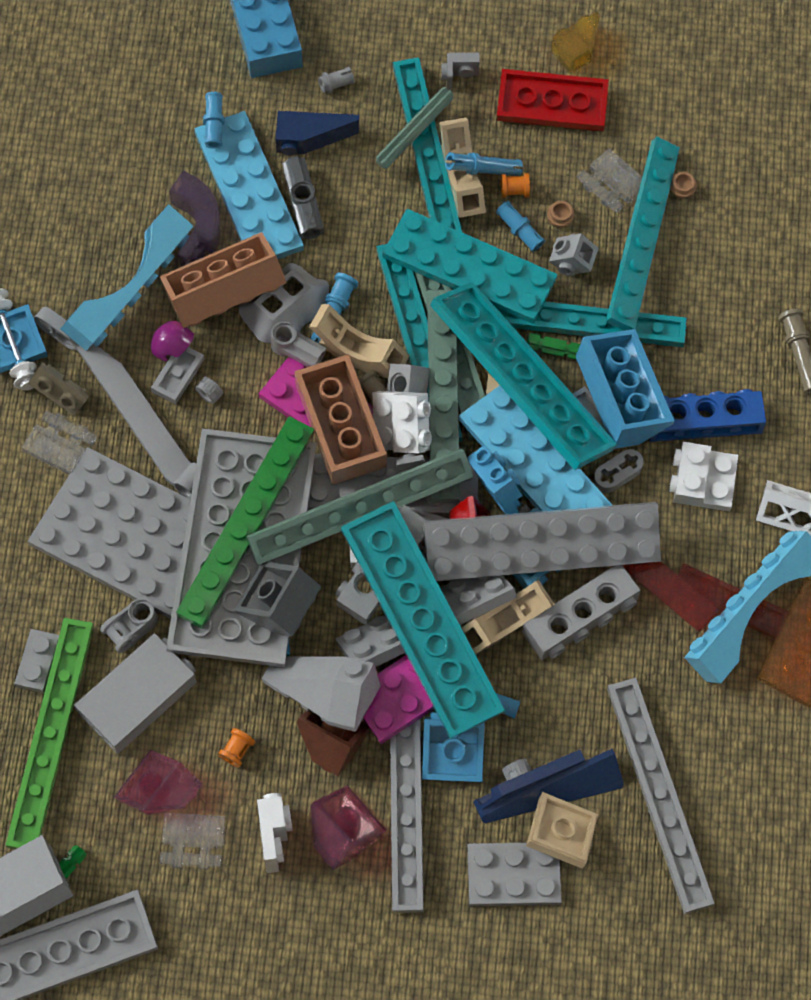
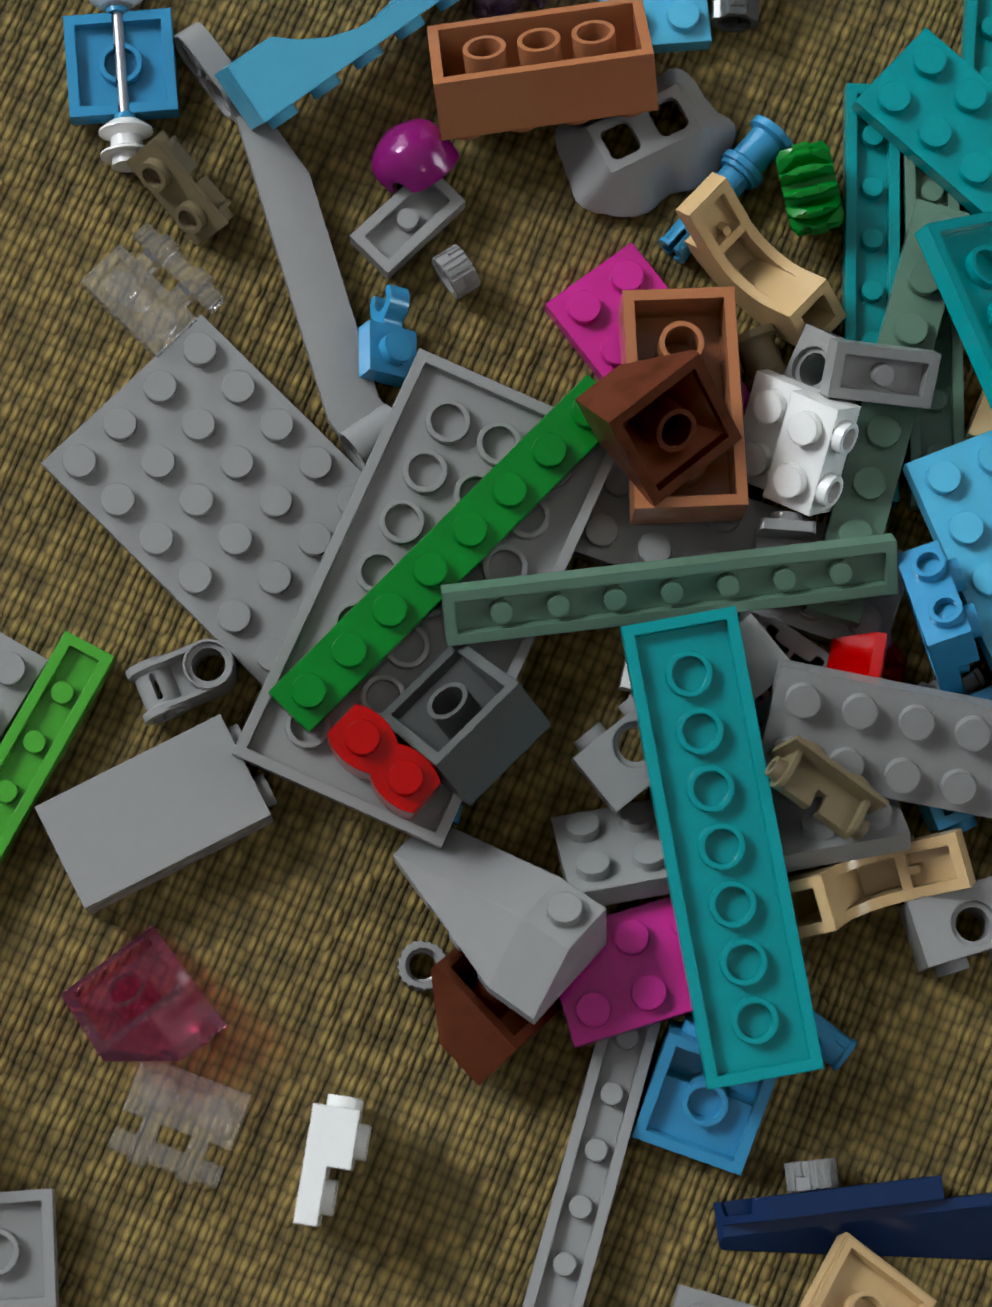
camera: 10 degrees right, 10 degrees up
(182, 434) = (383, 344): none -> dark azure plate
(236, 626) = (370, 751): none -> red brick
(236, 747) = (309, 972): orange bush -> none
(284, 723) = (406, 956): none -> light grey axle
(298, 347) = (646, 240): light grey piece -> none
(330, 425) = (660, 420): none -> copper slope
(342, 826) = (460, 1183): clear pink slope -> none
(373, 300) = (810, 188): none -> green gear
(432, 375) = (880, 373): none -> light grey plate
(451, 569) = (804, 770): none -> dark tan hinge

